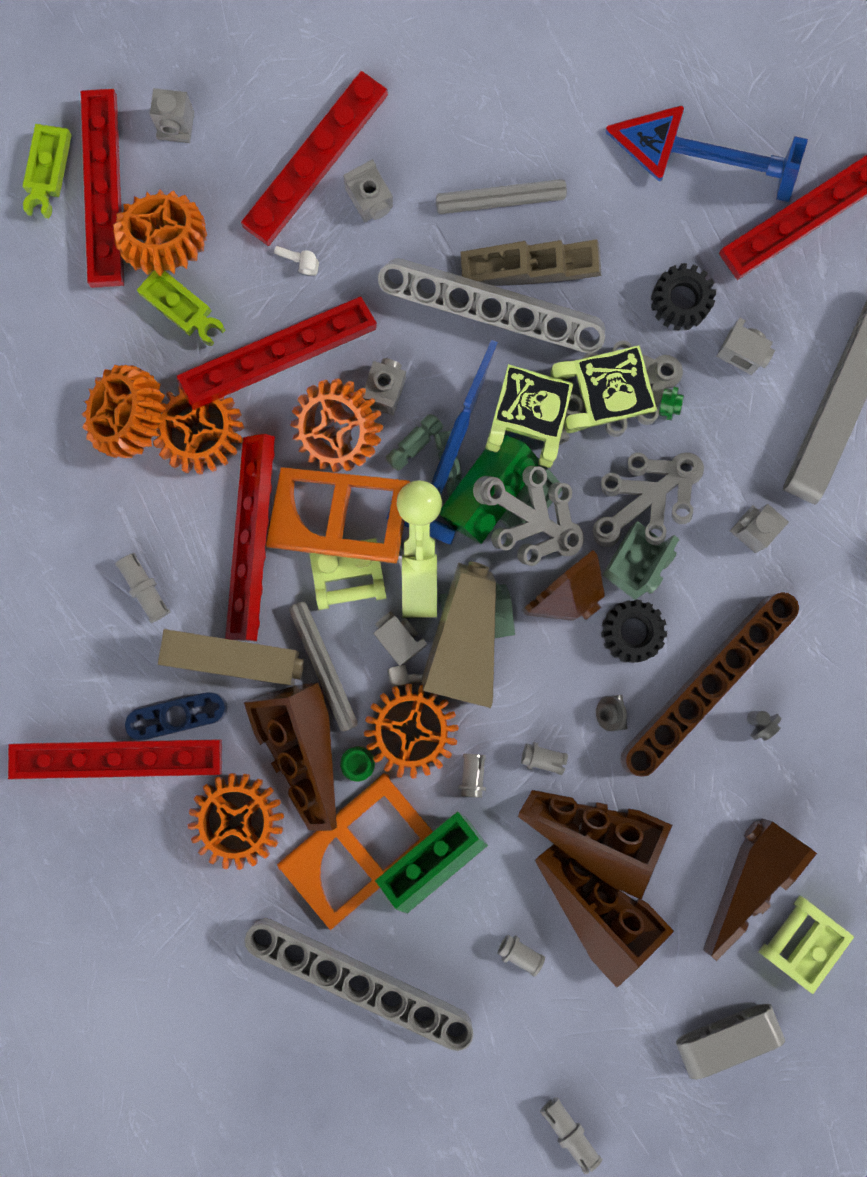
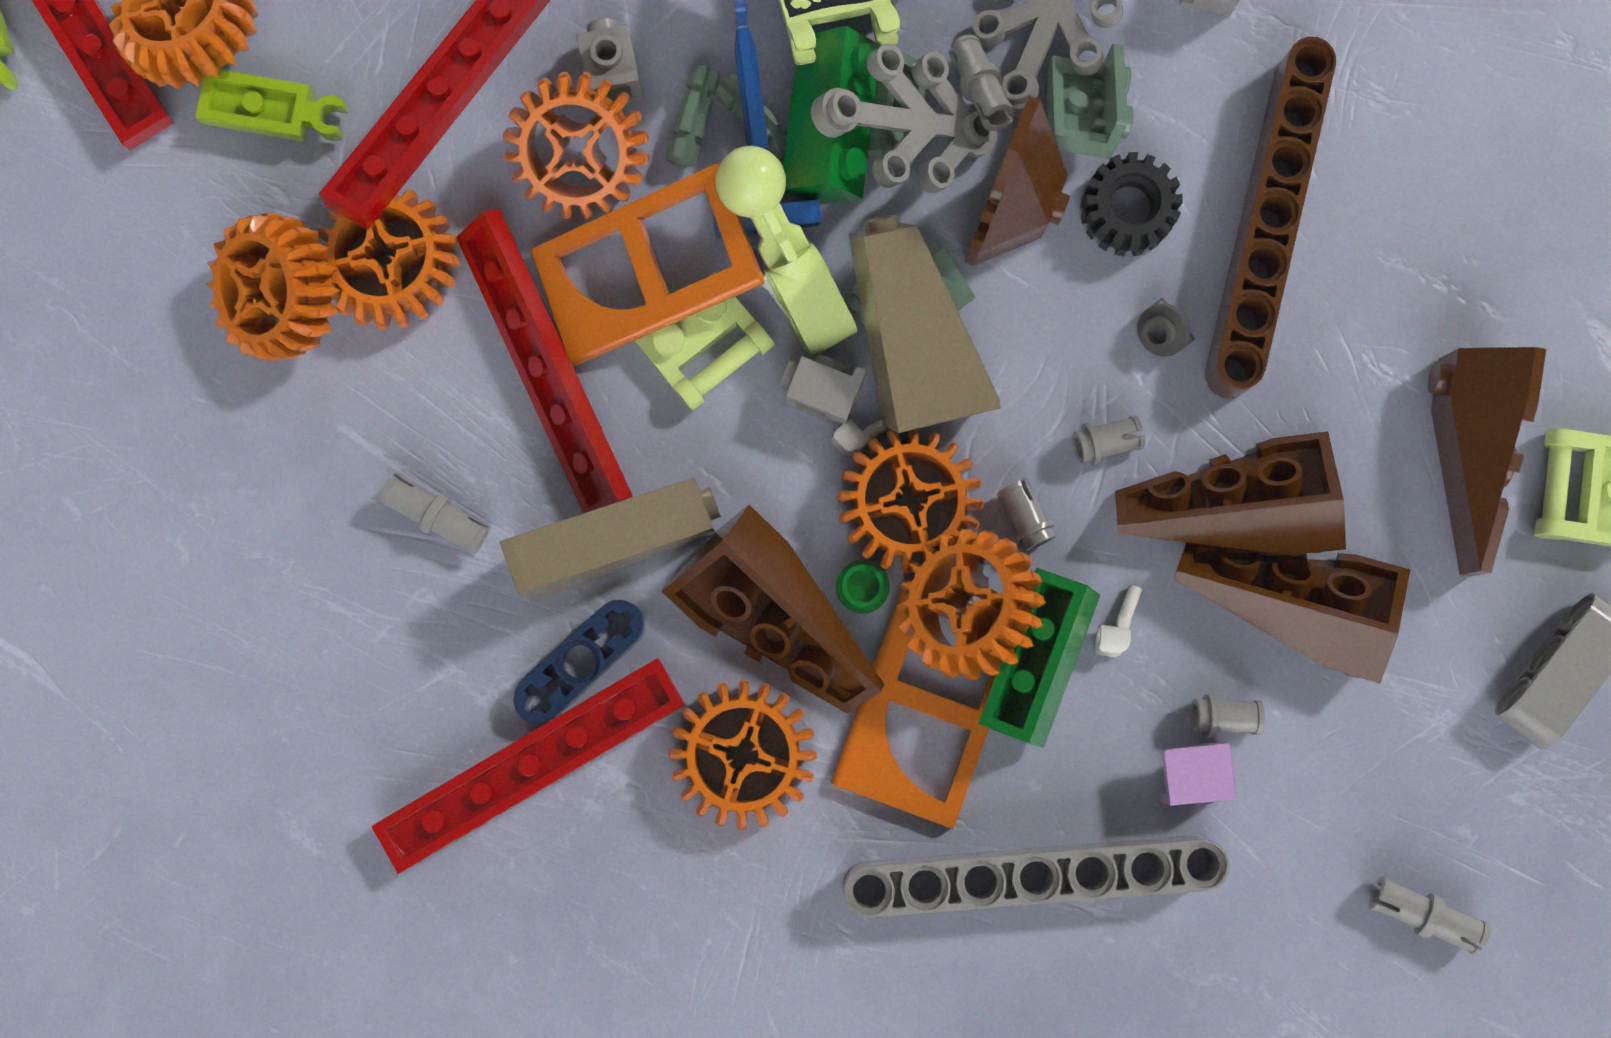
camera: 25 degrees left, 0 degrees up
(323, 666) = (741, 483): light grey axle -> none
(415, 787) = (949, 582): none -> orange gear
(482, 875) = (1113, 640): none -> white hand
(484, 979) = (1198, 774): none -> lavender panel
(586, 515) = (981, 83): none -> light grey pin
(765, 725) = (1371, 229): dark grey plate -> none

